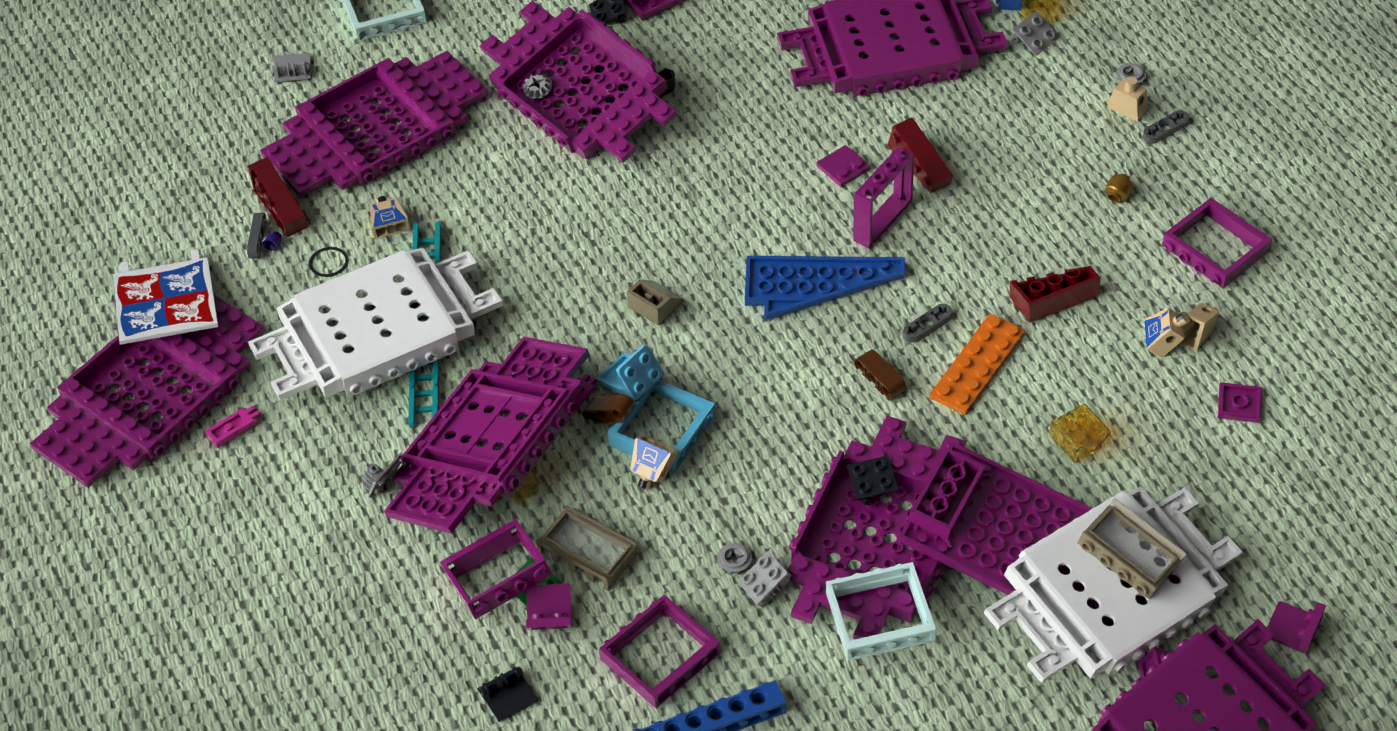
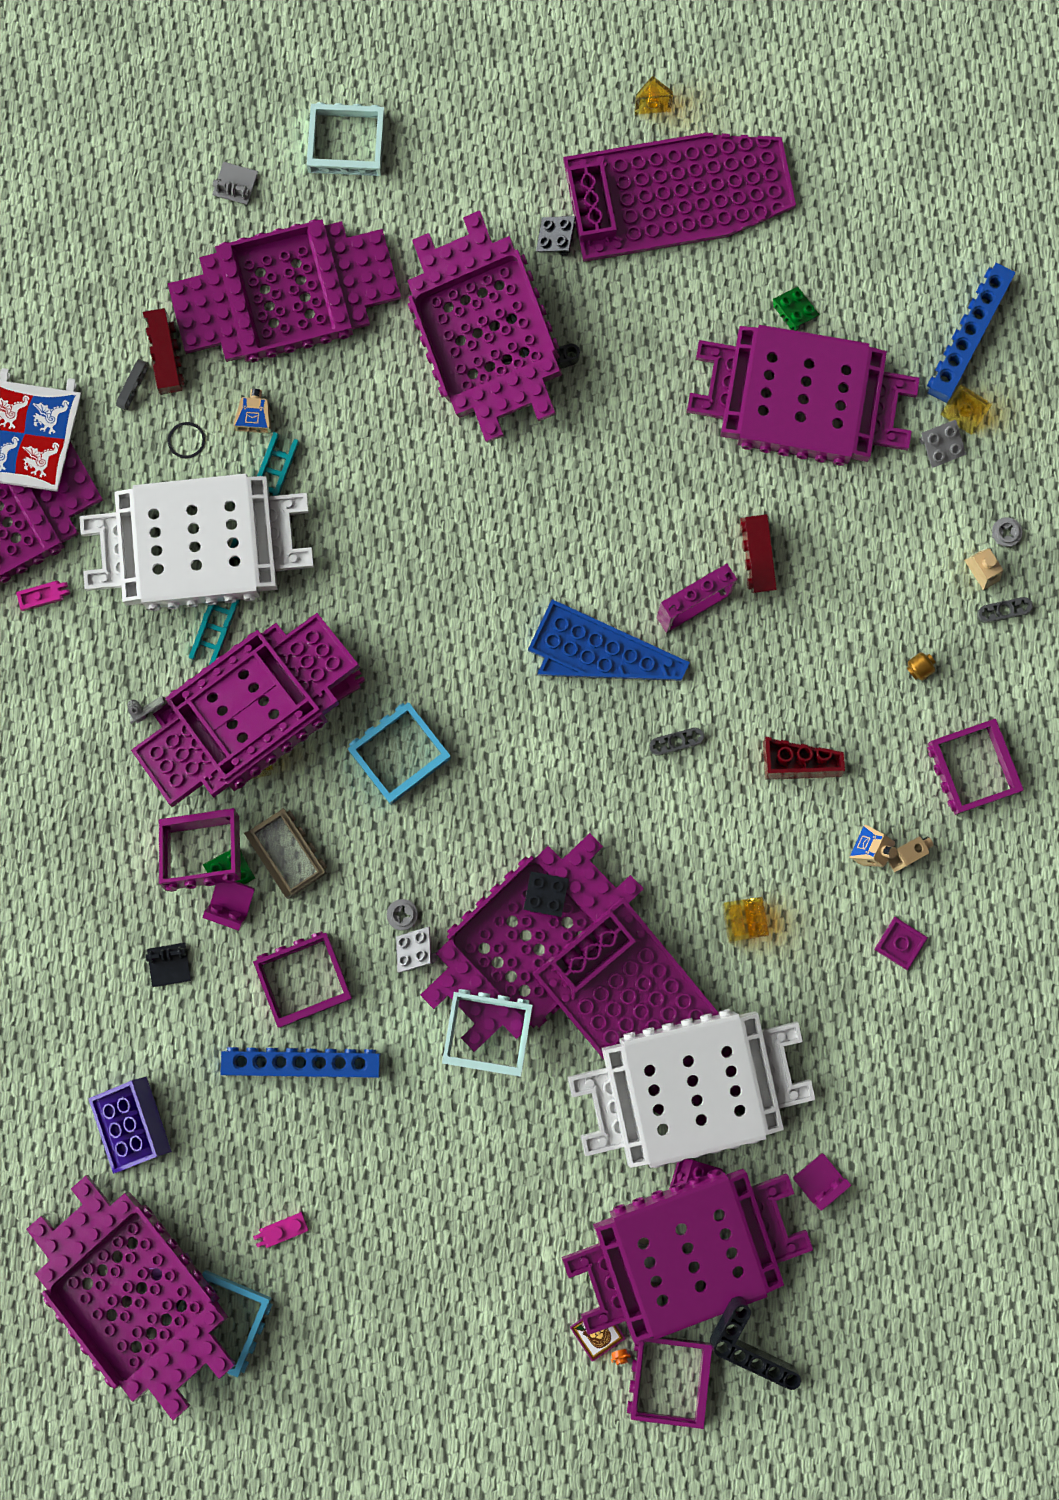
camera: 20 degrees right, 30 degrees up
(273, 238) = (145, 395): dark purple hose -> none
(534, 92) = (453, 317): light grey gear -> none
(608, 409) = (358, 722): reddish brown beam -> none
(632, 373) = (390, 695): medium azure bracket -> none
(651, 460) = (371, 793): torso -> none
(652, 300) = (450, 614): dark tan slope -> none
(843, 165) = (687, 527): magenta plate -> none
(878, 371) = (608, 781): reddish brown beam -> none
(977, 364) = (698, 803): orange plate -> none
(1131, 548) = (712, 1077): dark tan window -> none

